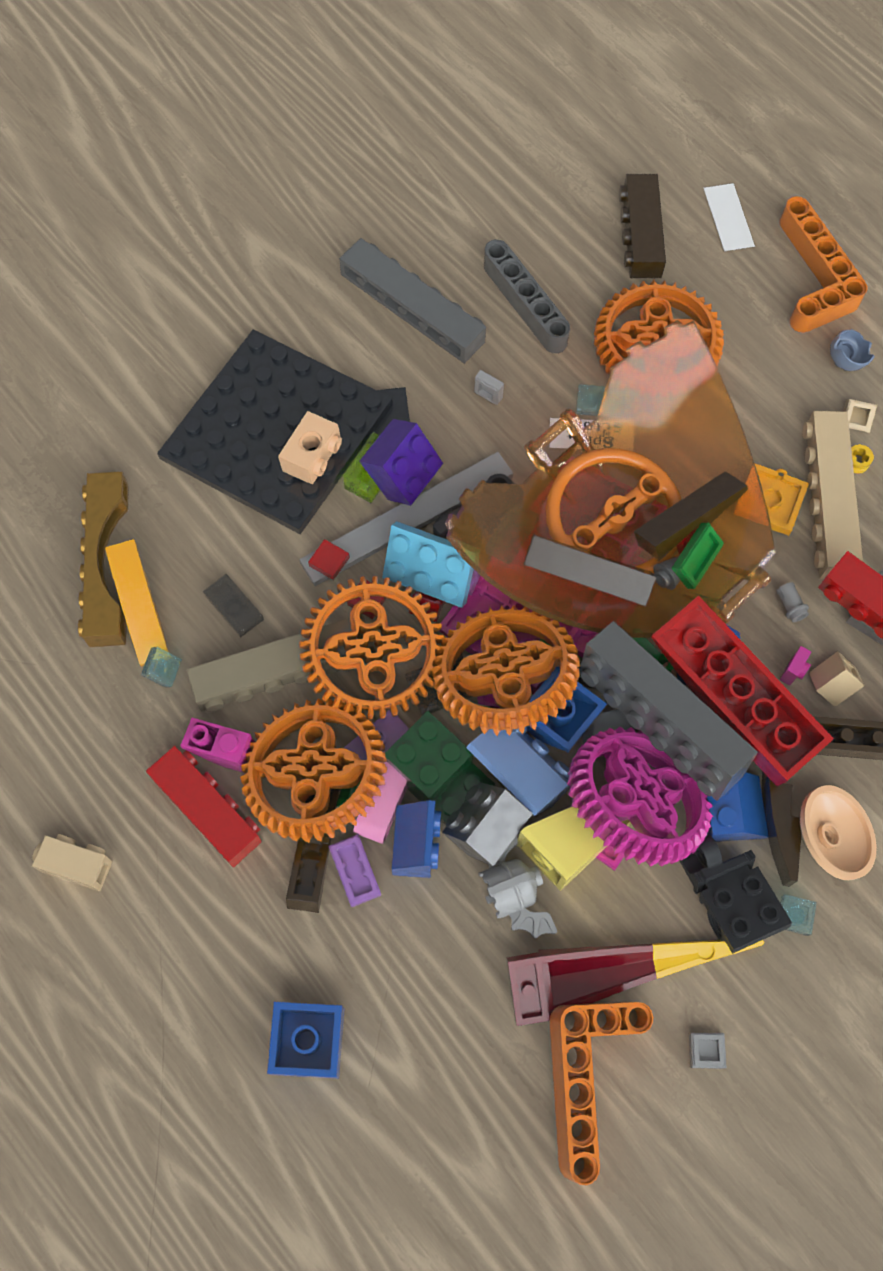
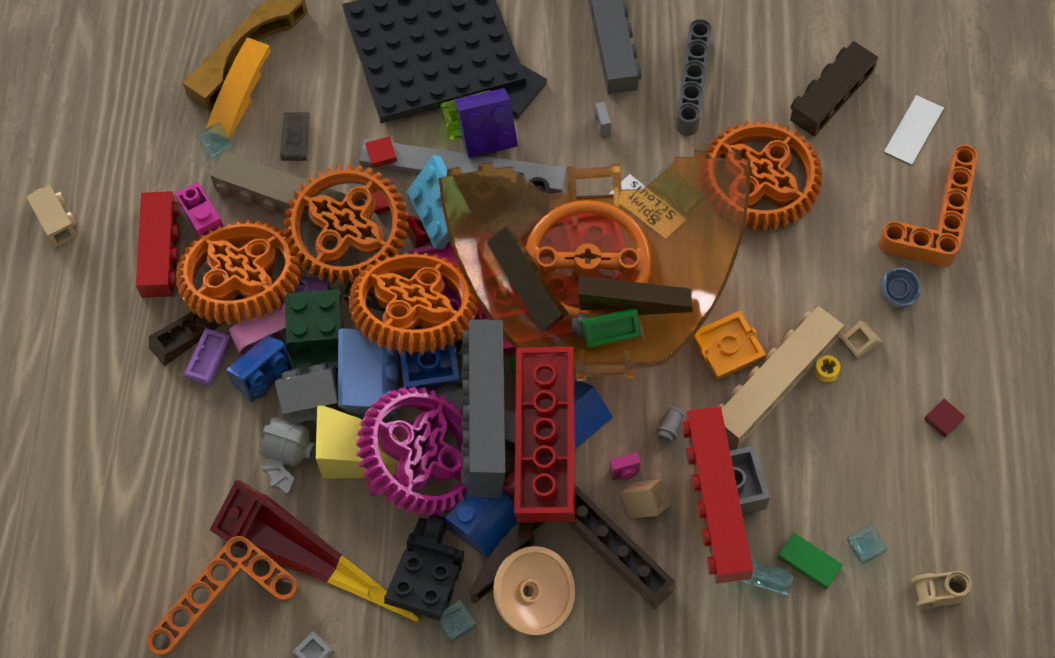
camera: 45 degrees right, 5 degrees down
(306, 1040) = (79, 427): blue brick -> none
(310, 433) = (433, 68): light nougat brick -> none

